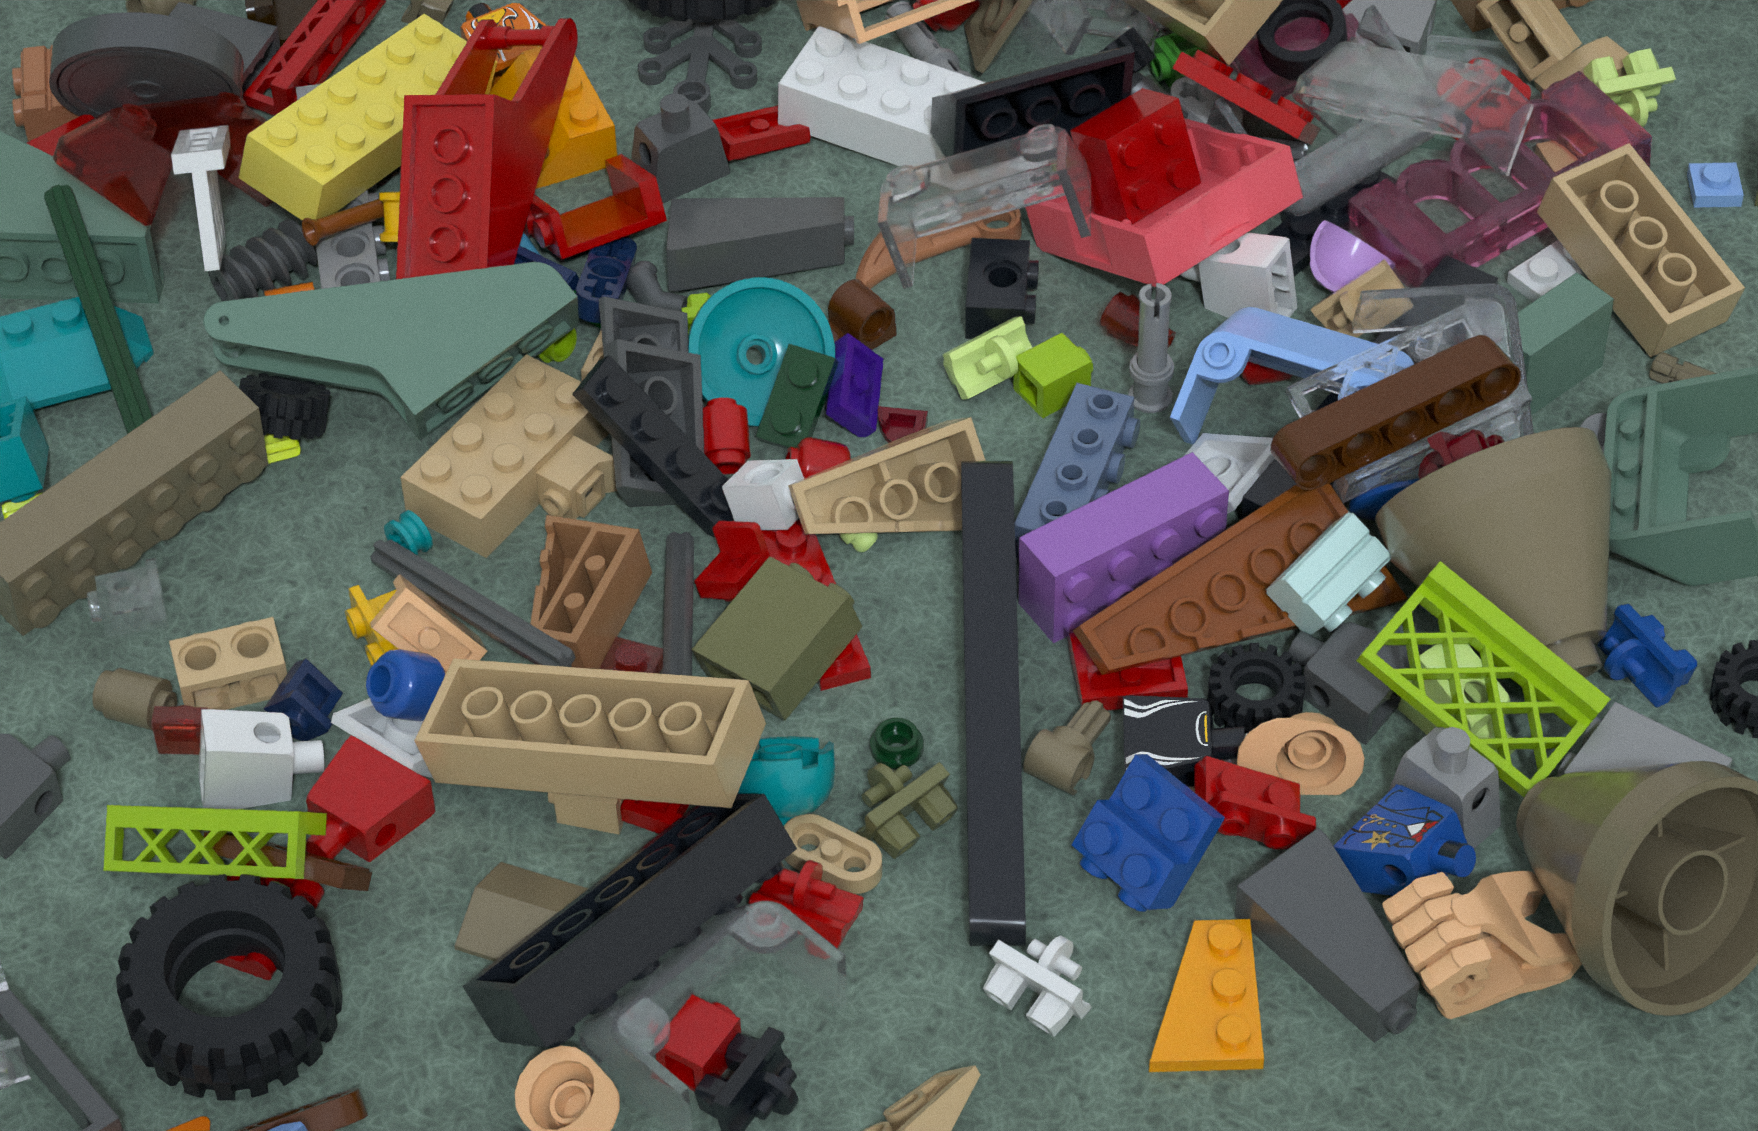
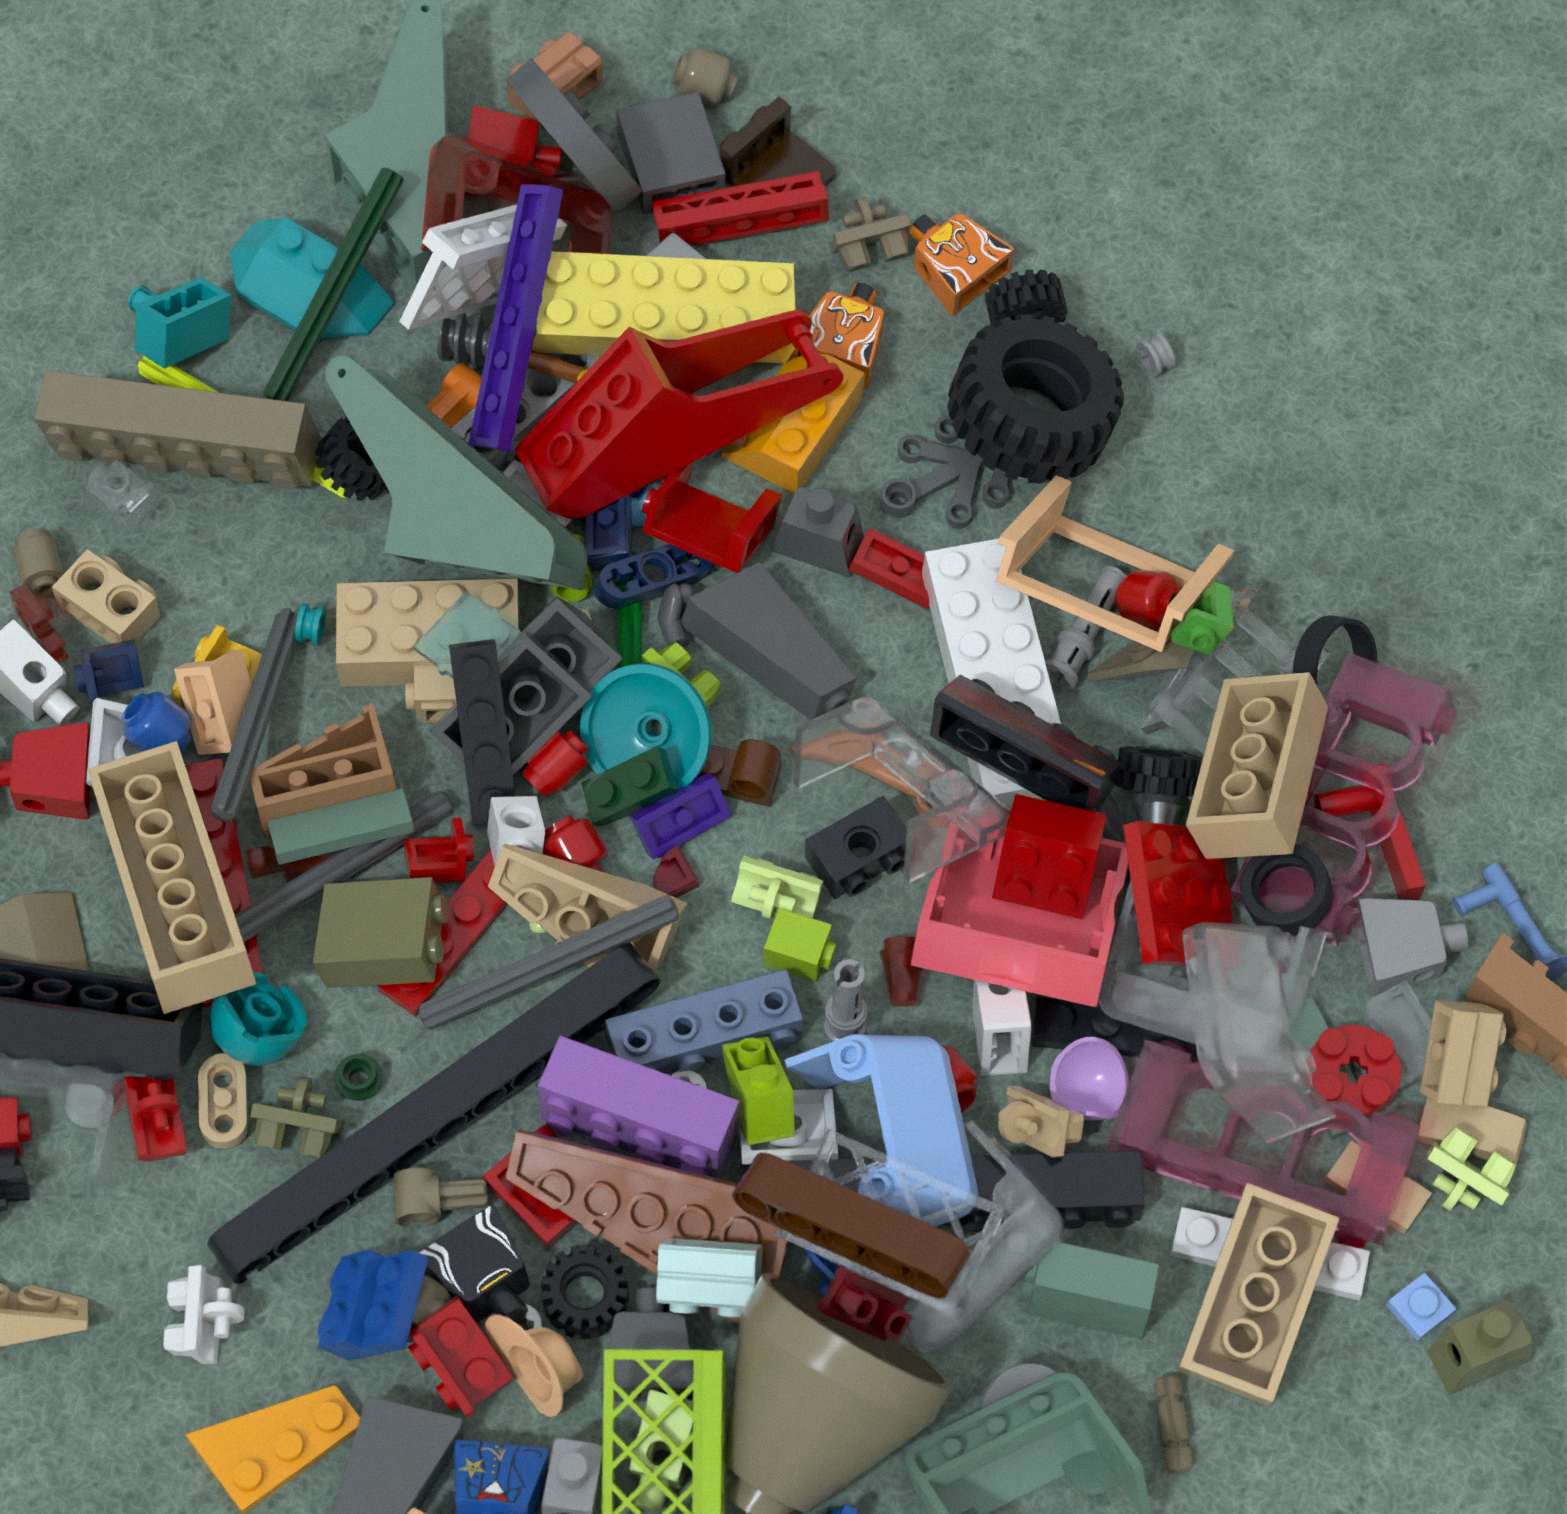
camera: 50 degrees right, 15 degrees up
(288, 176) = (515, 317): none -> dark purple plate
(552, 415) = (464, 622): none -> clear light blue piece
(643, 609) = (340, 826): none -> sand green tile
(922, 533) = (548, 962): none -> dark grey axle
(1156, 445) = (761, 1088): none -> lime slope

